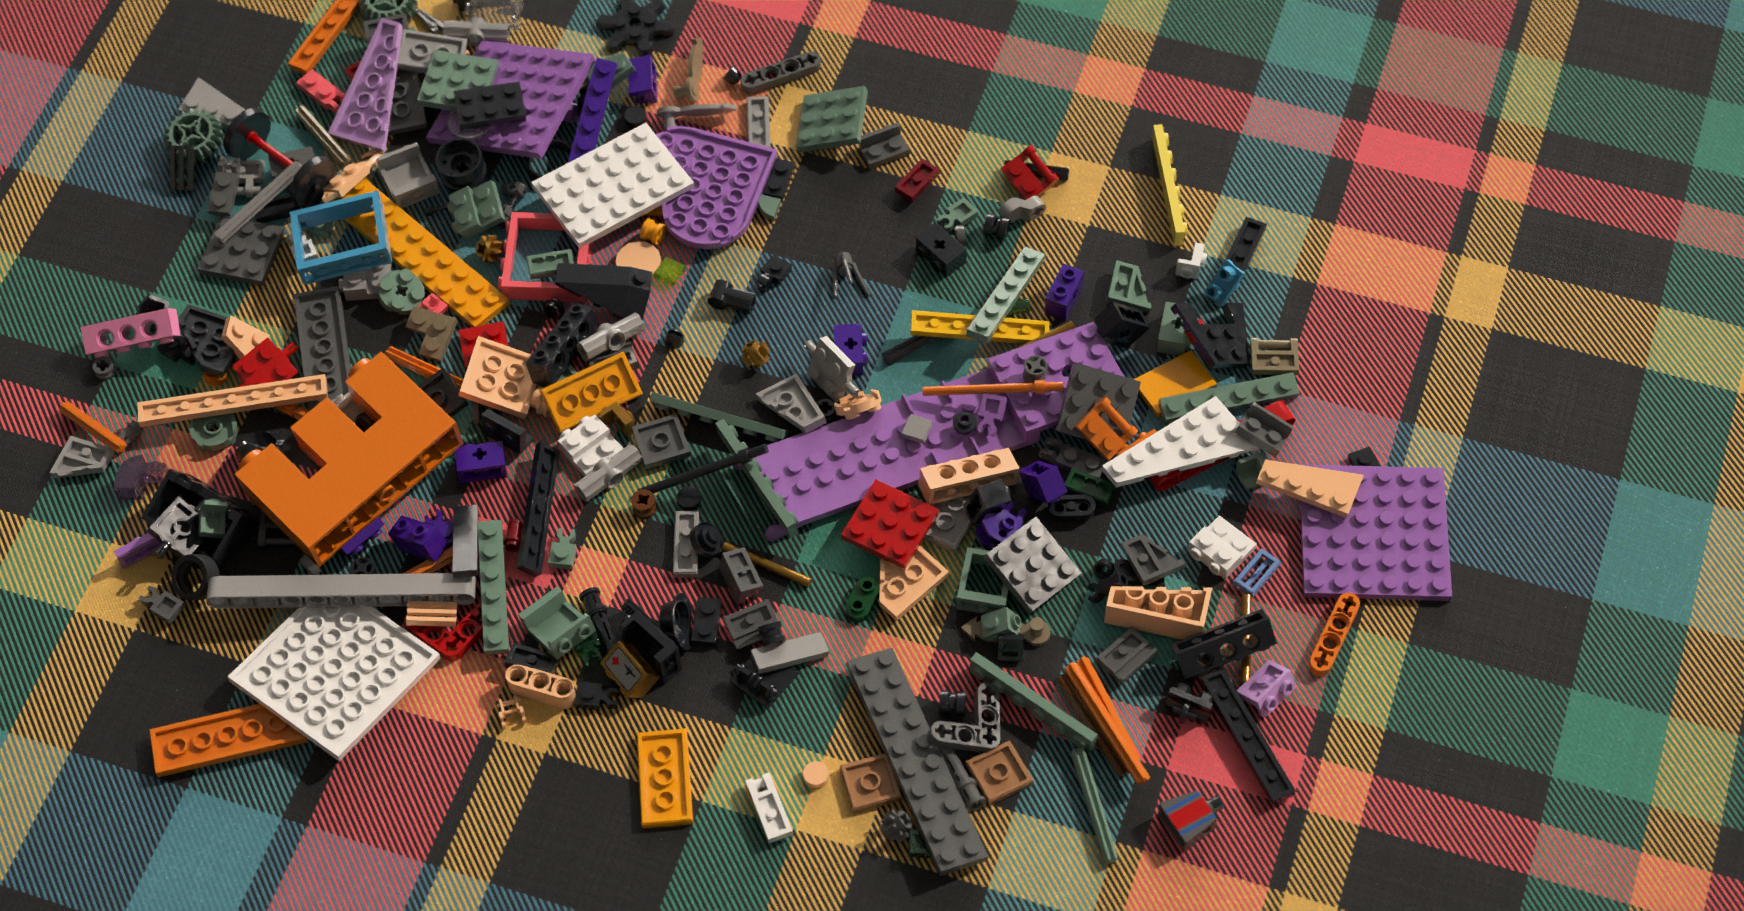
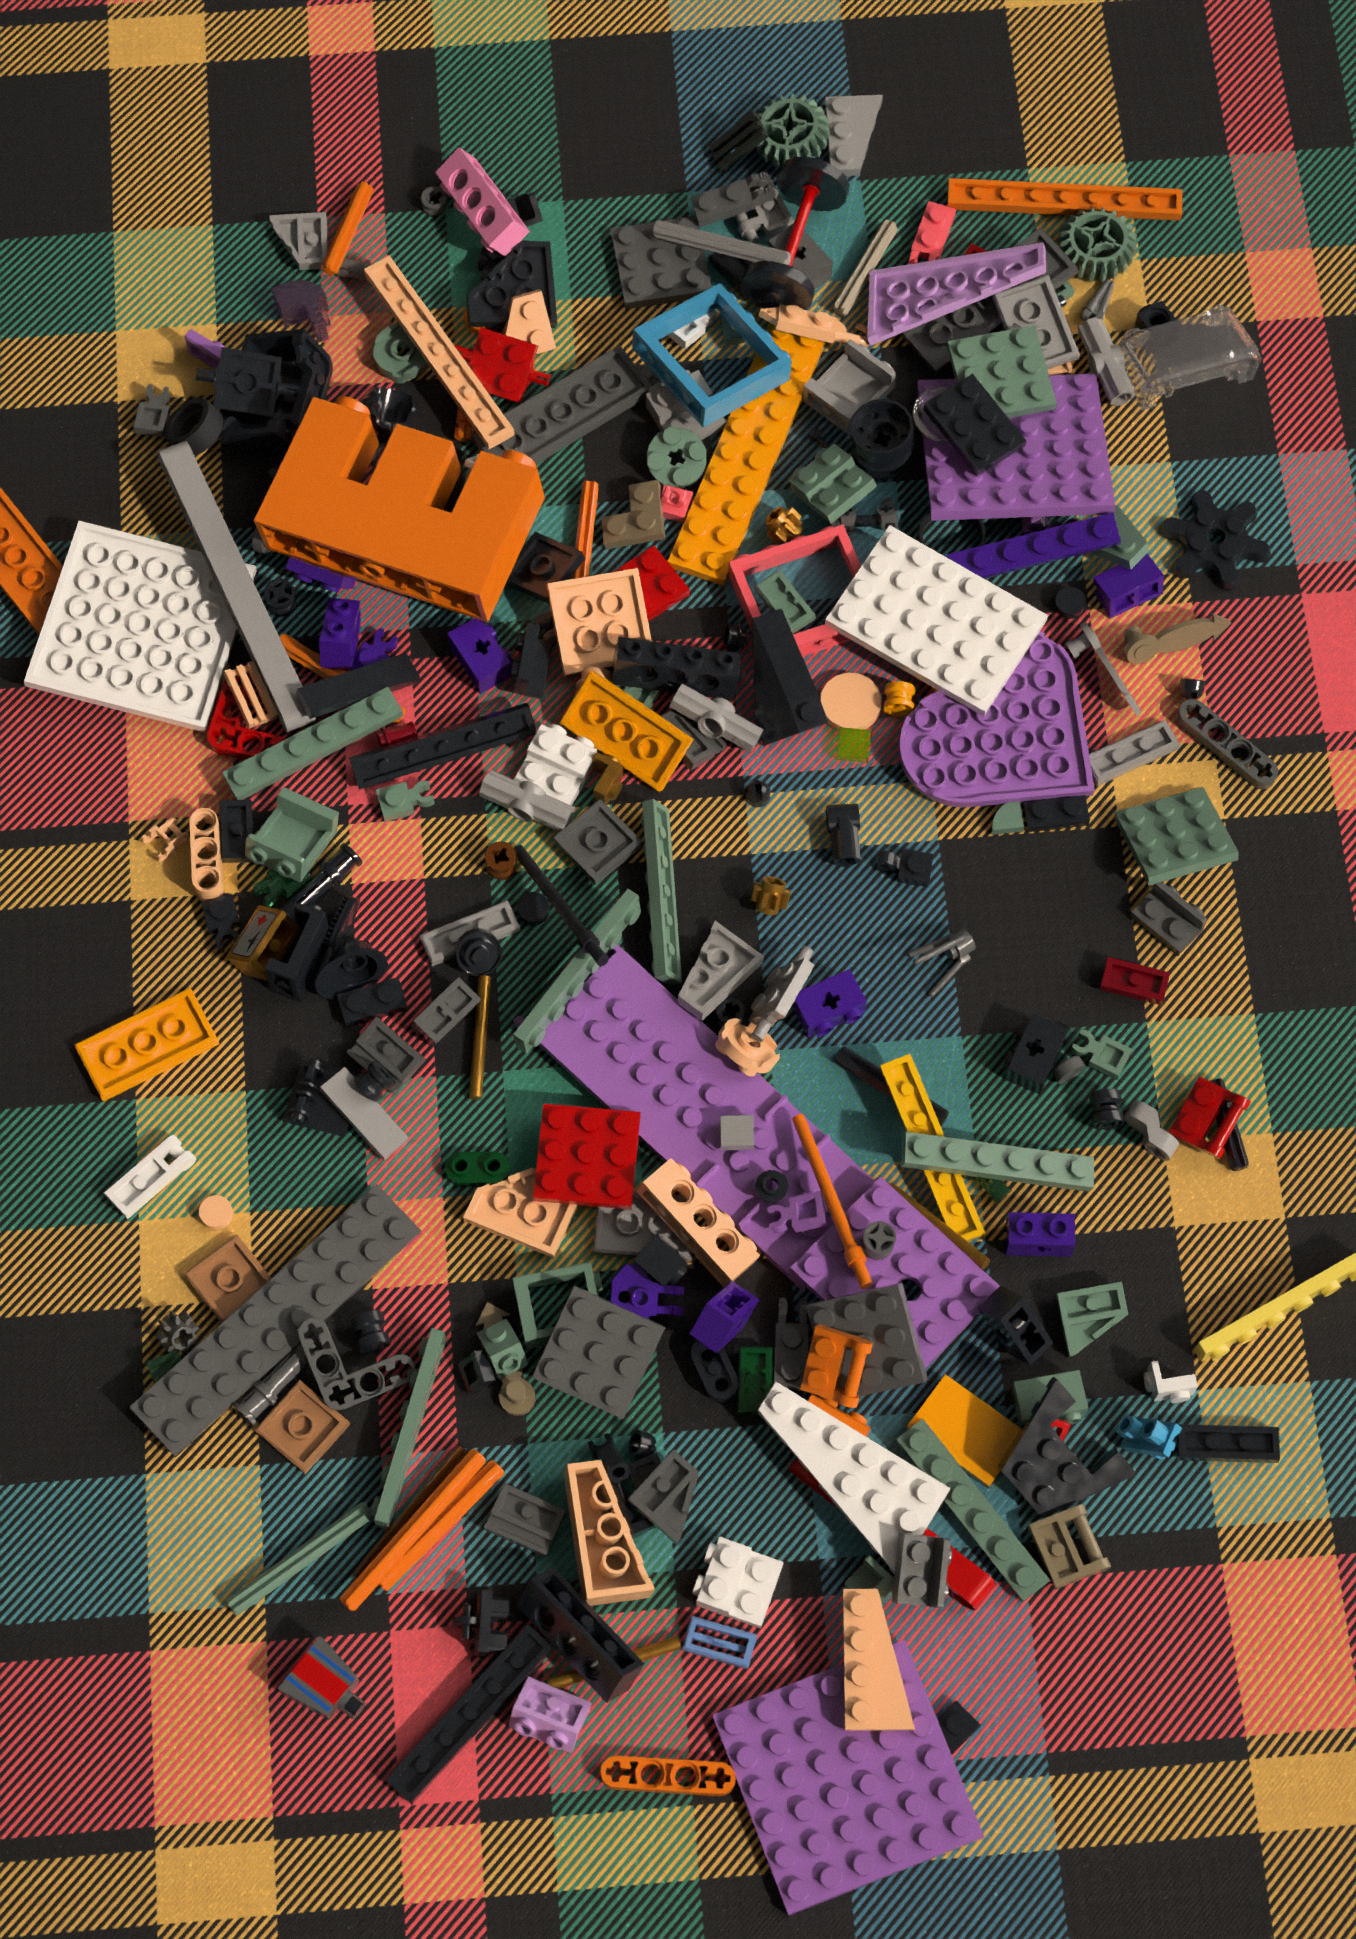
camera: 65 degrees right, 10 degrees up
(212, 518) = (269, 406): sand green bracket -> none

